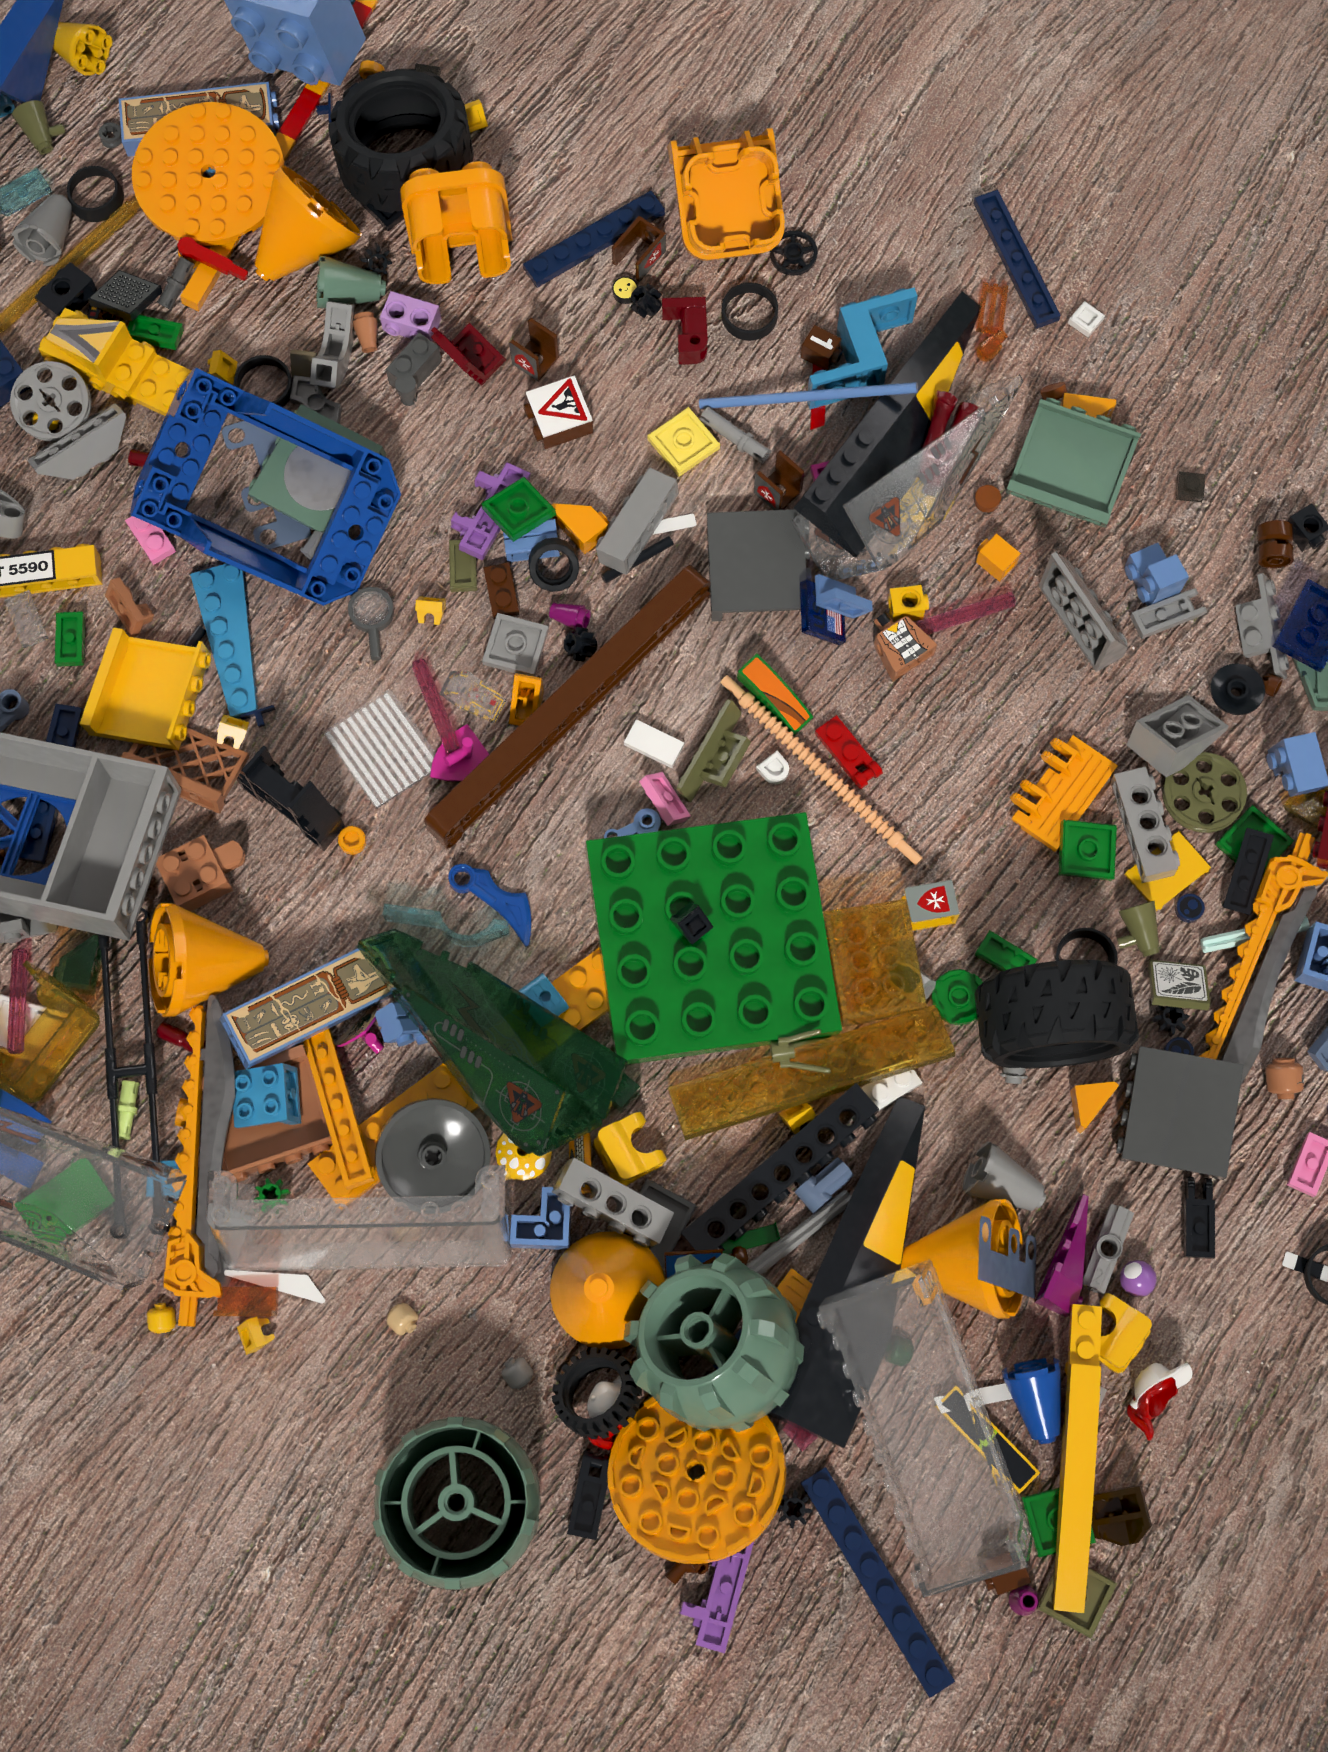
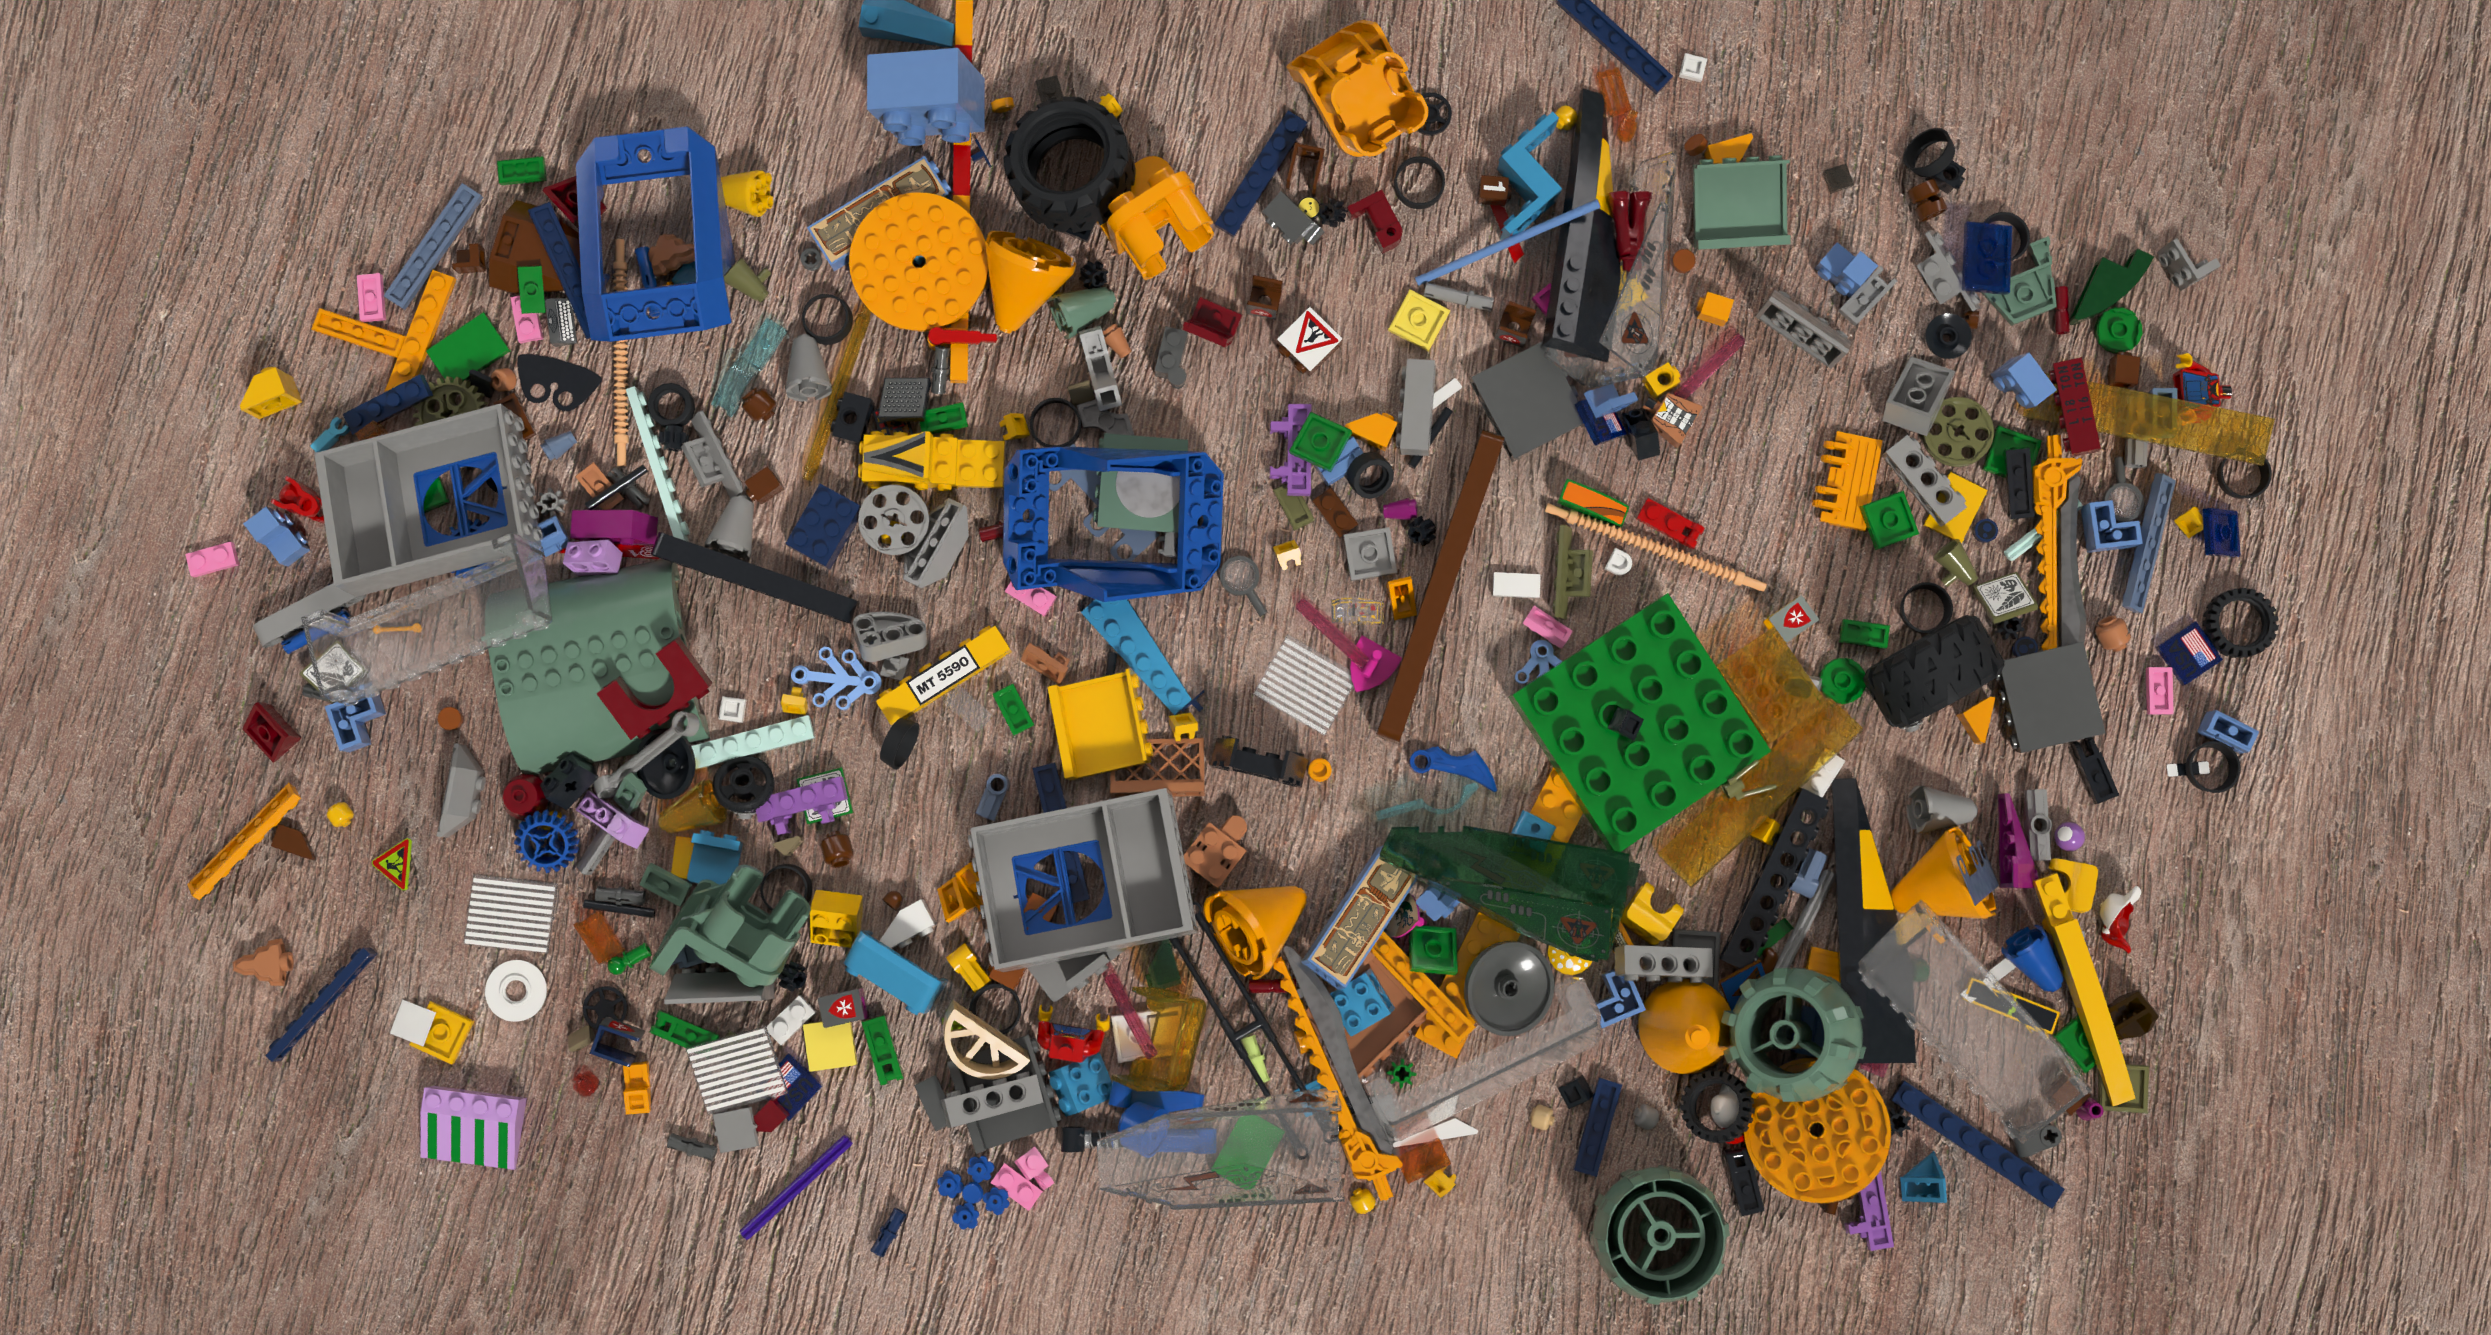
camera: 25 degrees left, 10 degrees up
(372, 1077) = (1433, 950): none -> green tile
(413, 312) = (1147, 307): lavender brick -> none
(453, 1307) = (1575, 1092): none -> black slope
(455, 1356) = (1597, 1127): none -> dark blue plate
(600, 290) = (1291, 220): none -> dark grey hinge
(794, 1595) = (1924, 1182): none -> dark azure slope
(859, 647) = (1641, 434): none -> black slope
(930, 313) = (1567, 117): none -> yellow piece
(942, 1607) = (2038, 1142): none -> dark grey piece
(1295, 487) = (1920, 143): none -> black tyre

